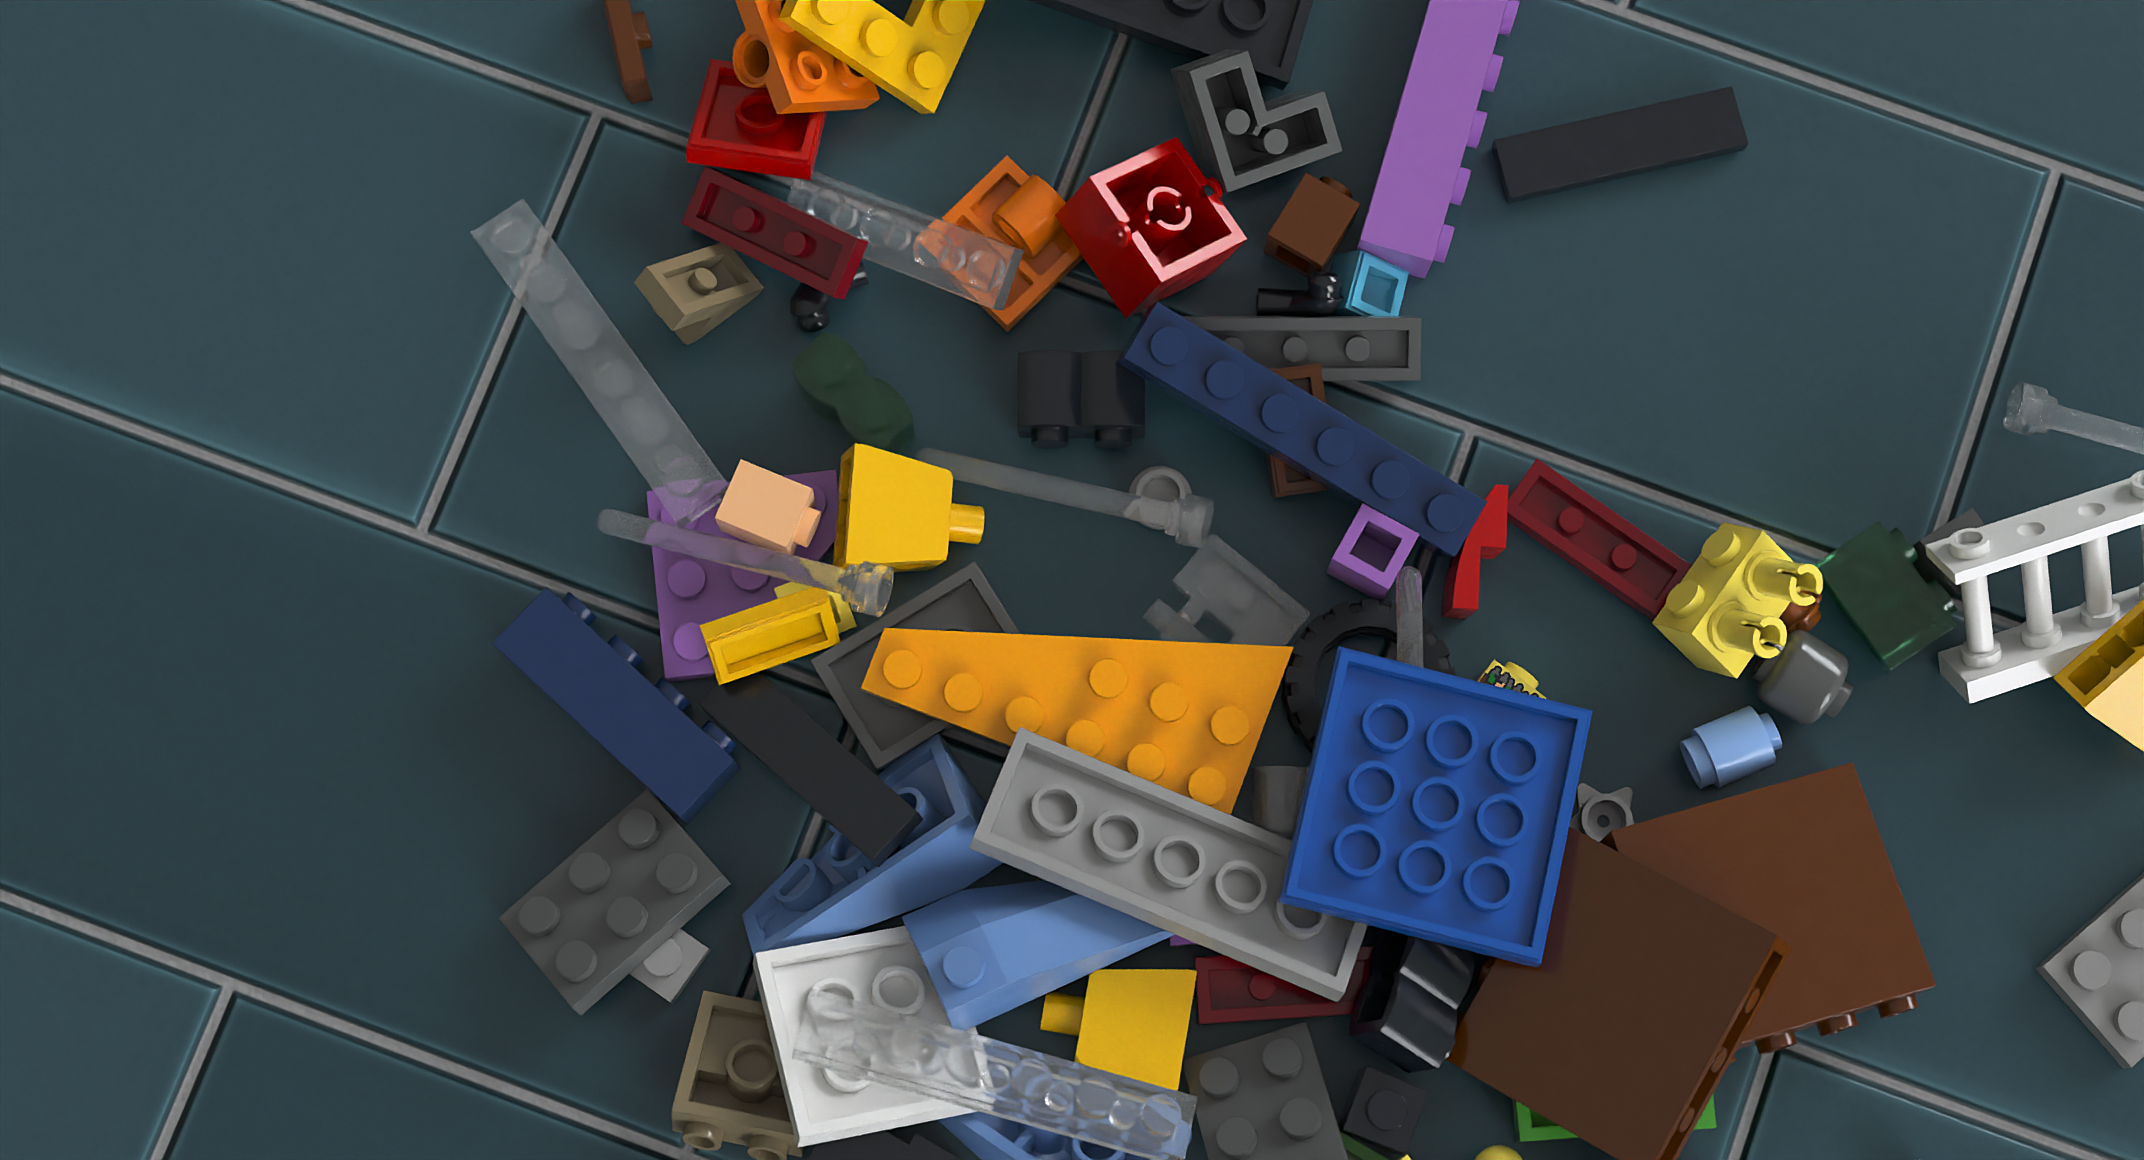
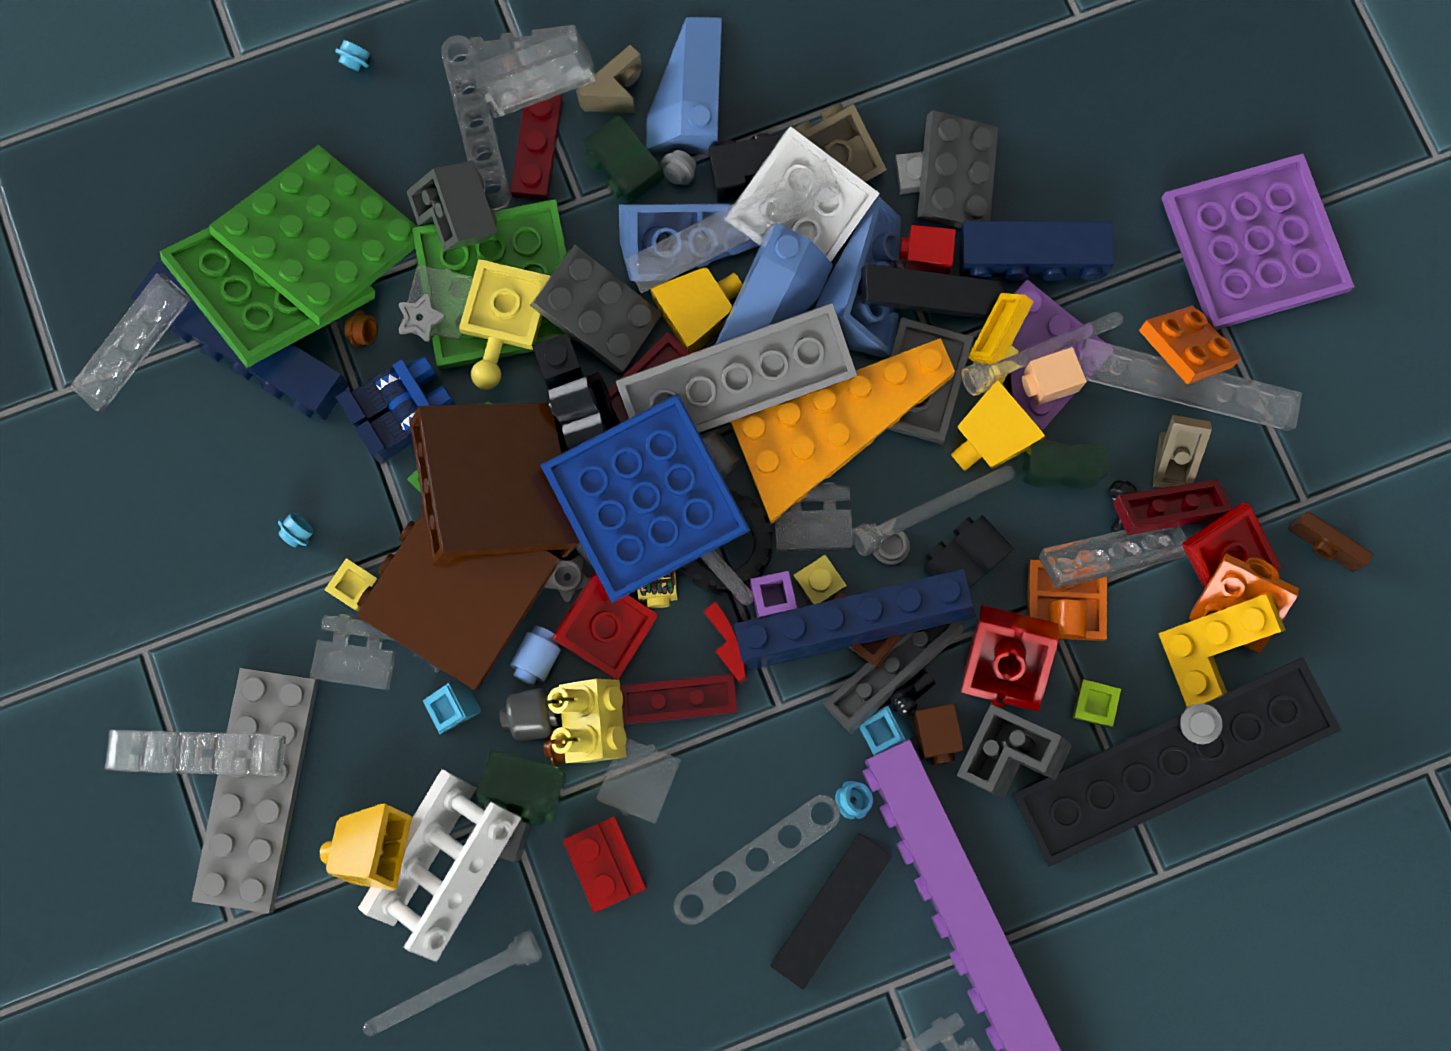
camera: 145 degrees right, 0 degrees up
(327, 464) = (1257, 242): none -> medium lavender plate
(554, 403) = (1190, 344): none -> orange plate
(757, 828) = (928, 249): none -> red brick
(1088, 98) = (1096, 703): none -> lime plate
(1287, 533) = (819, 580): none -> light yellow plate
(1476, 227) = (862, 799): none -> medium azure plate
(1633, 701) = (602, 630): none -> red plate
(1688, 258) = (744, 875): none -> clear beam
(1723, 483) = (639, 781): none -> clear piece
(1850, 428) = (604, 864): none -> red plate
(1892, 781) = (451, 706): none -> medium azure slope
(1898, 1049) = (350, 583): none -> light yellow plate
(1982, 949) = (350, 663): none -> clear plate

